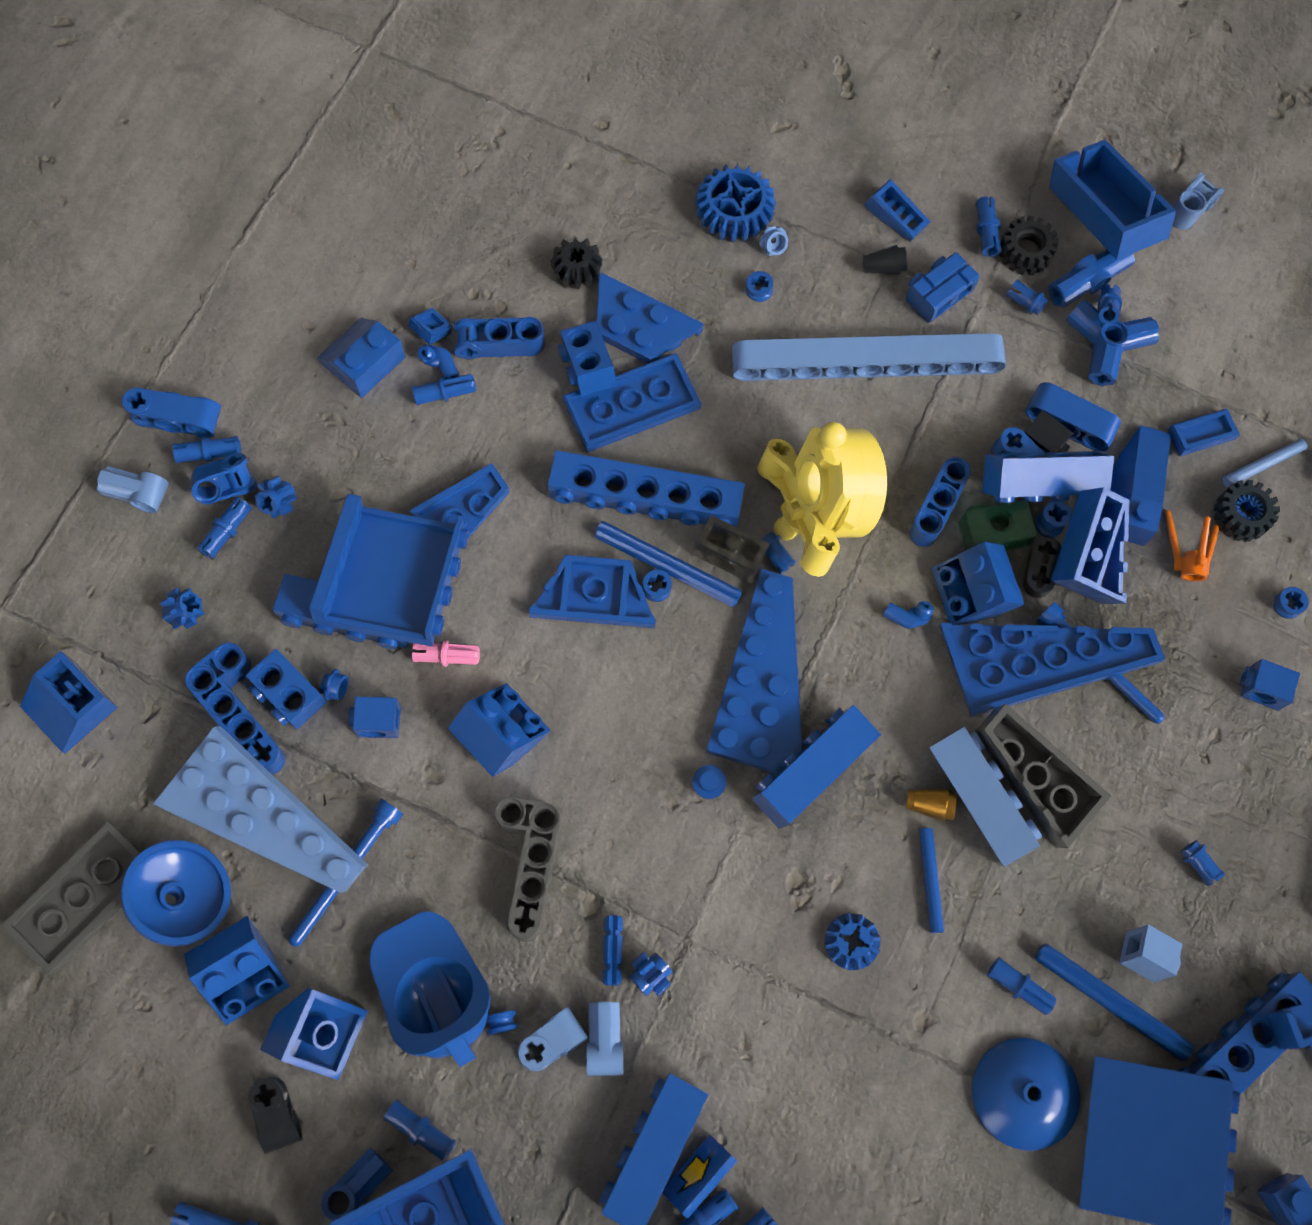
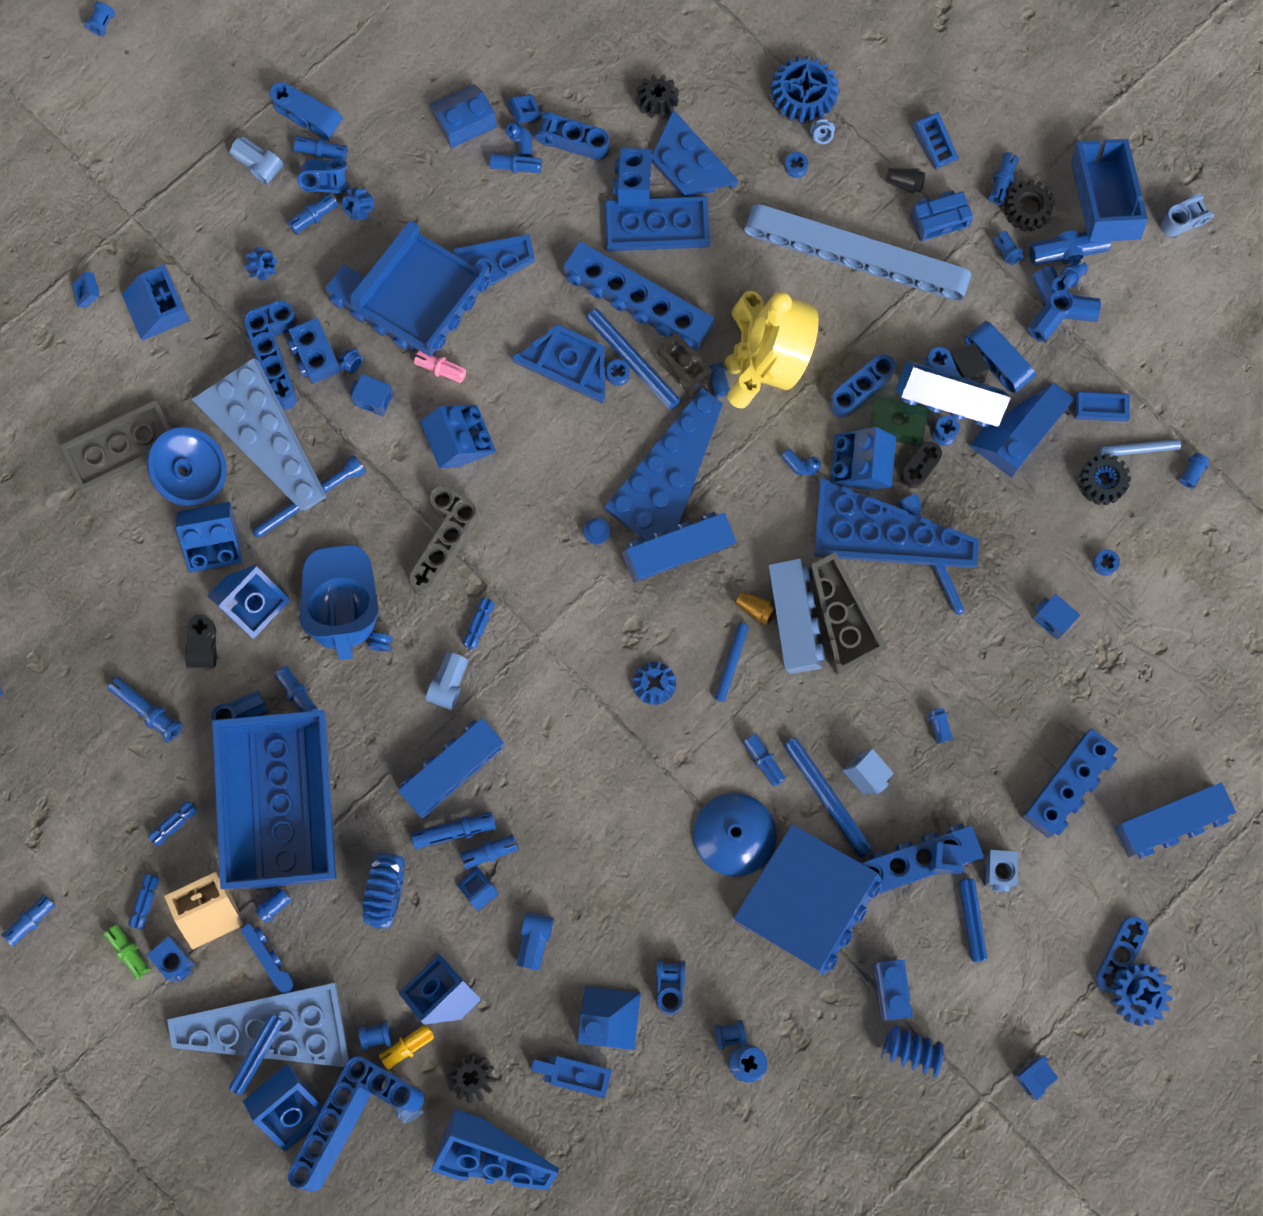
camera: 25 degrees right, 5 degrees up
(557, 1036) = (412, 668): medium blue piece -> none
(650, 974) = (498, 648): blue gear -> none
(698, 1176) = (476, 797): blue tile -> none
(1094, 547) = (962, 463): blue wedge -> none
(1195, 563) = (1042, 505): orange plant -> none

